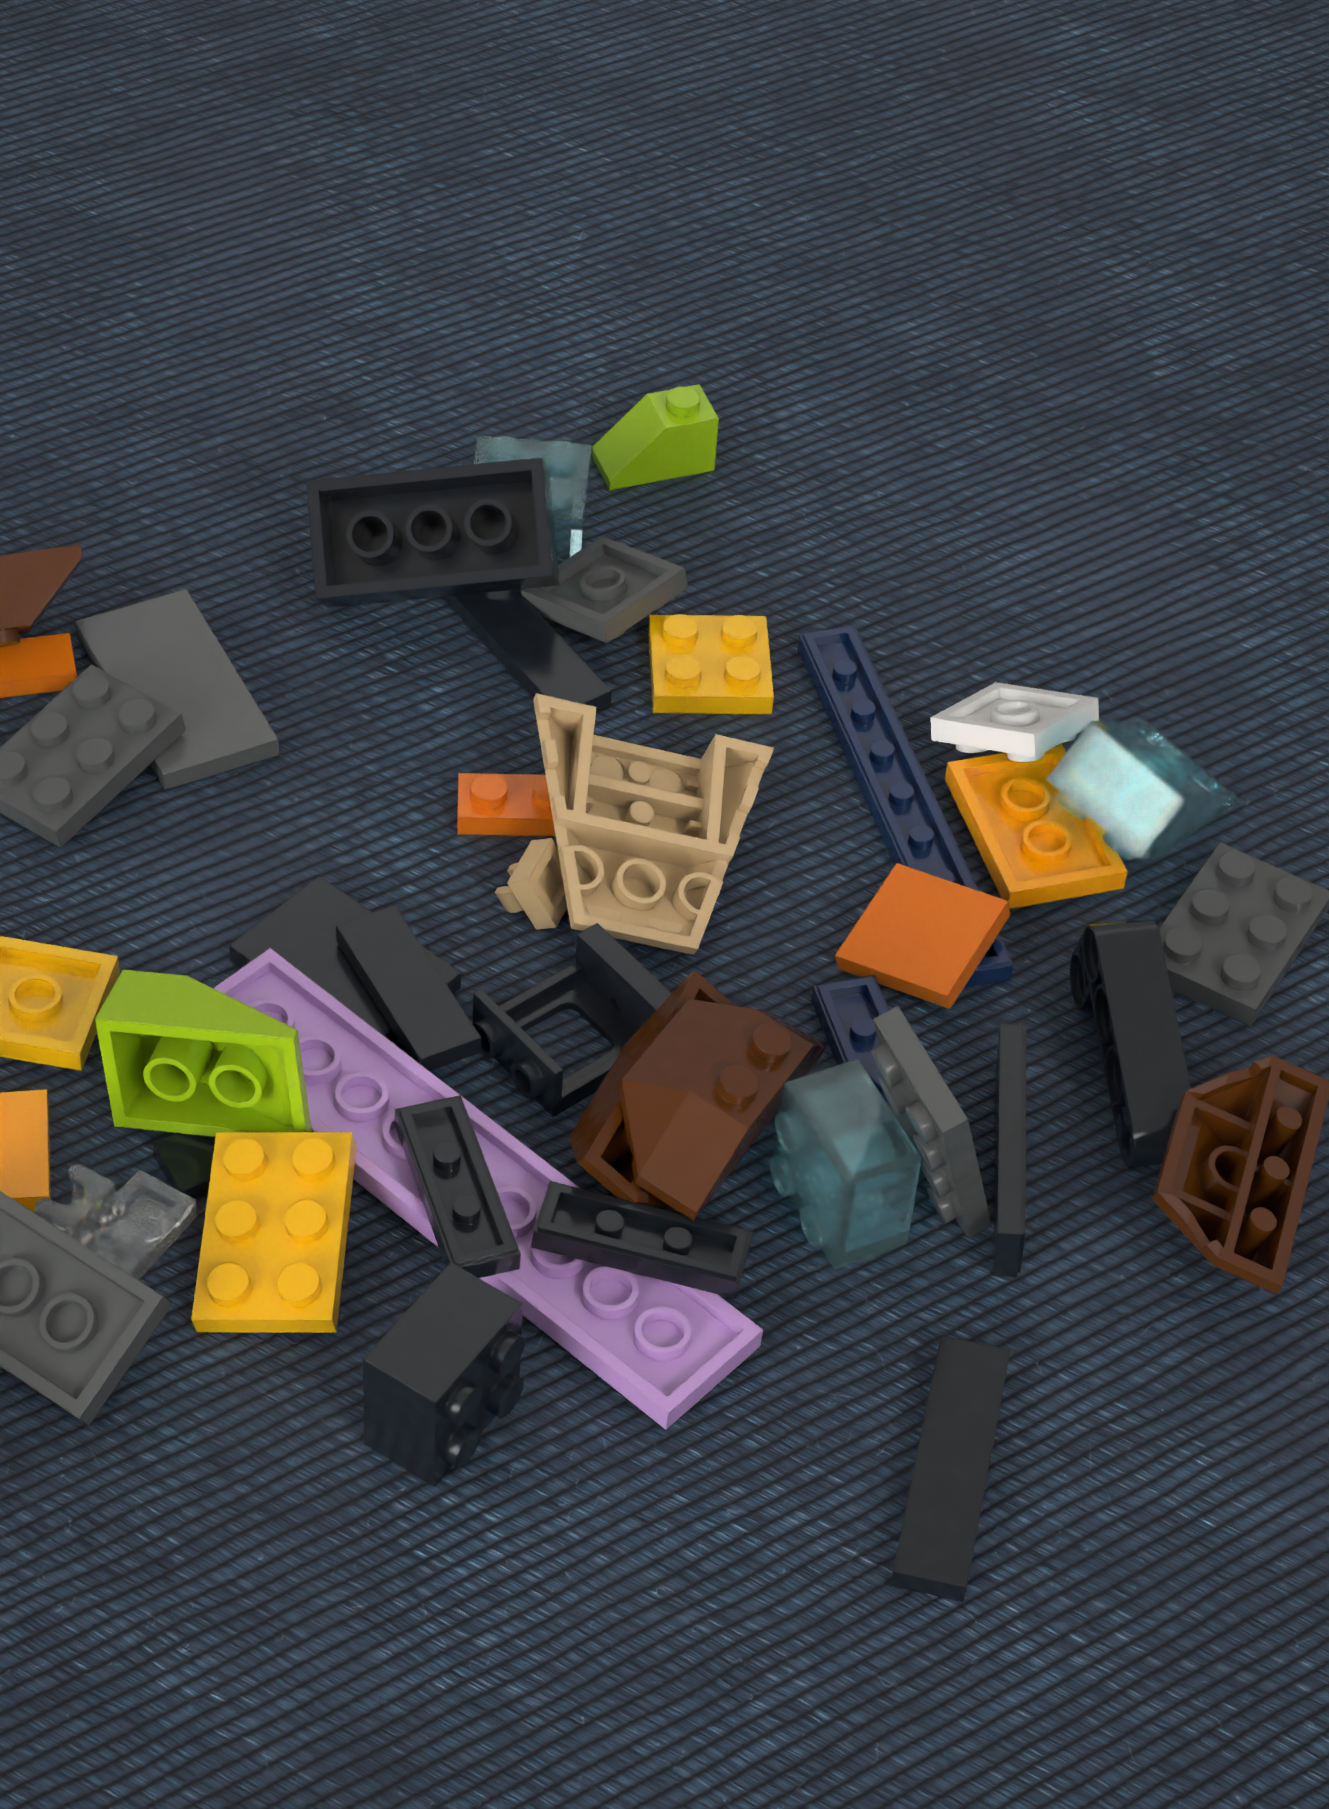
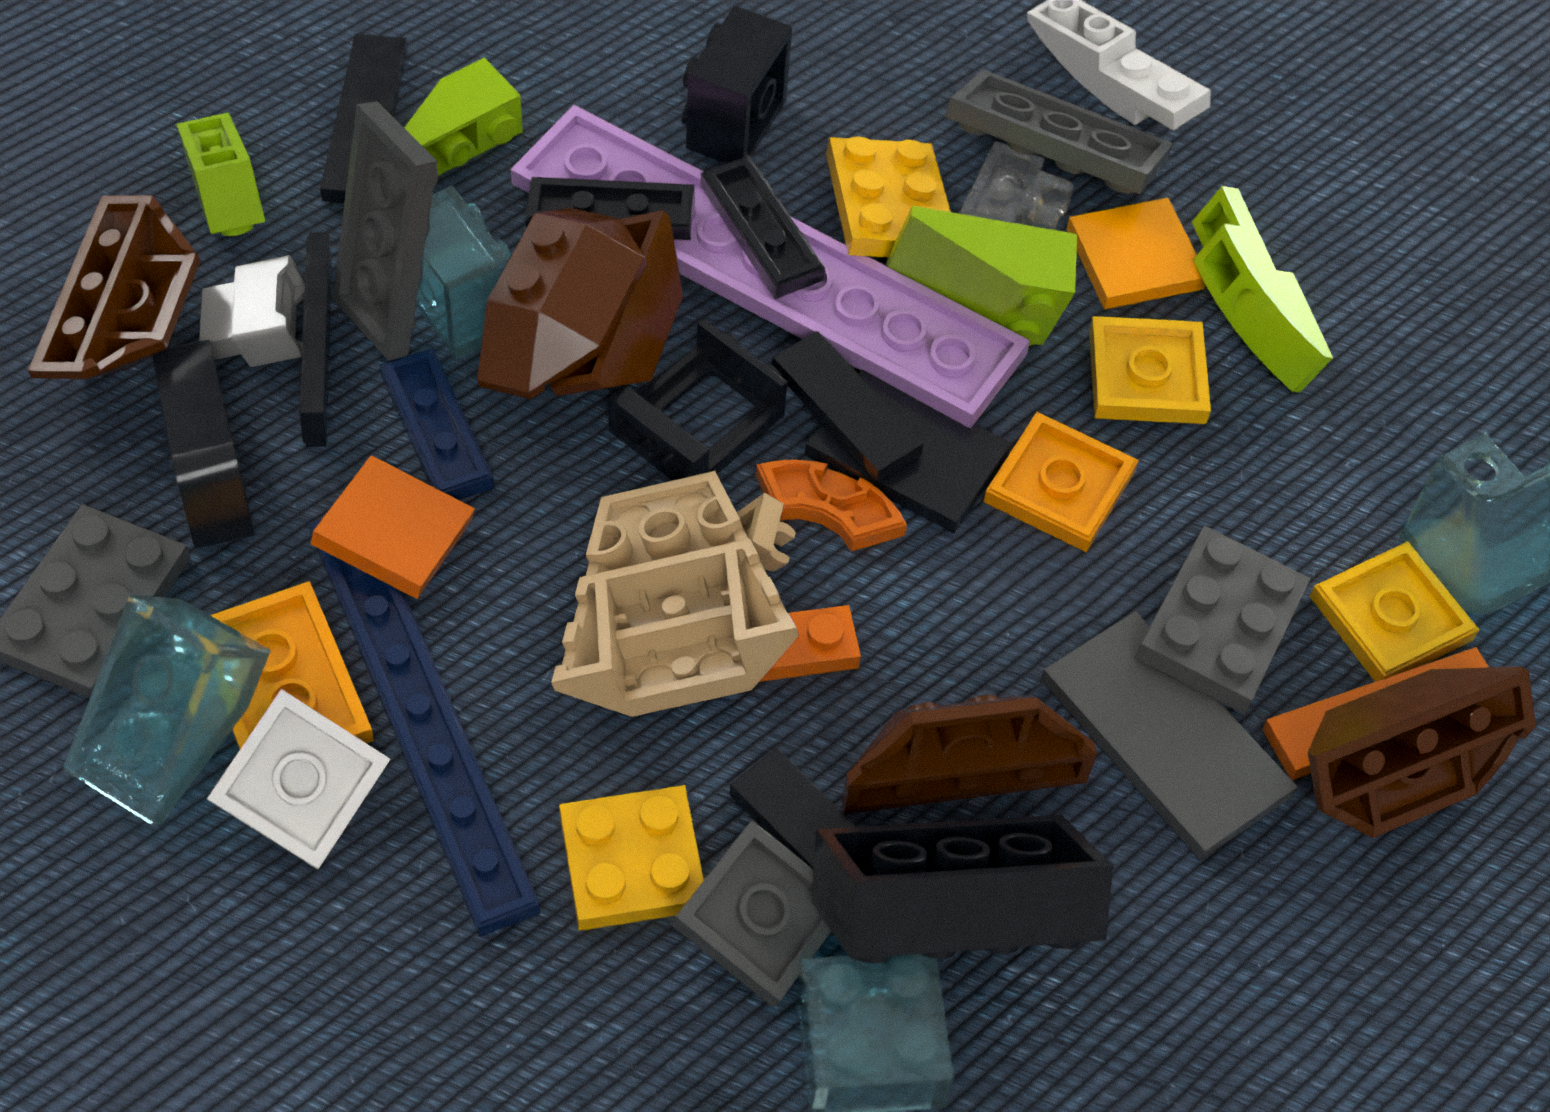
camera: 170 degrees right, 10 degrees up
(181, 915) = (1061, 481): none -> light orange tile
(385, 665) = (967, 753): none -> reddish brown wedge
(462, 938) = (838, 502): none -> orange tile
(822, 1419) = (467, 115): none -> lime slope
(1084, 1186) = (255, 312): none -> light grey piece
(1143, 1385) = (221, 174): none -> lime slope

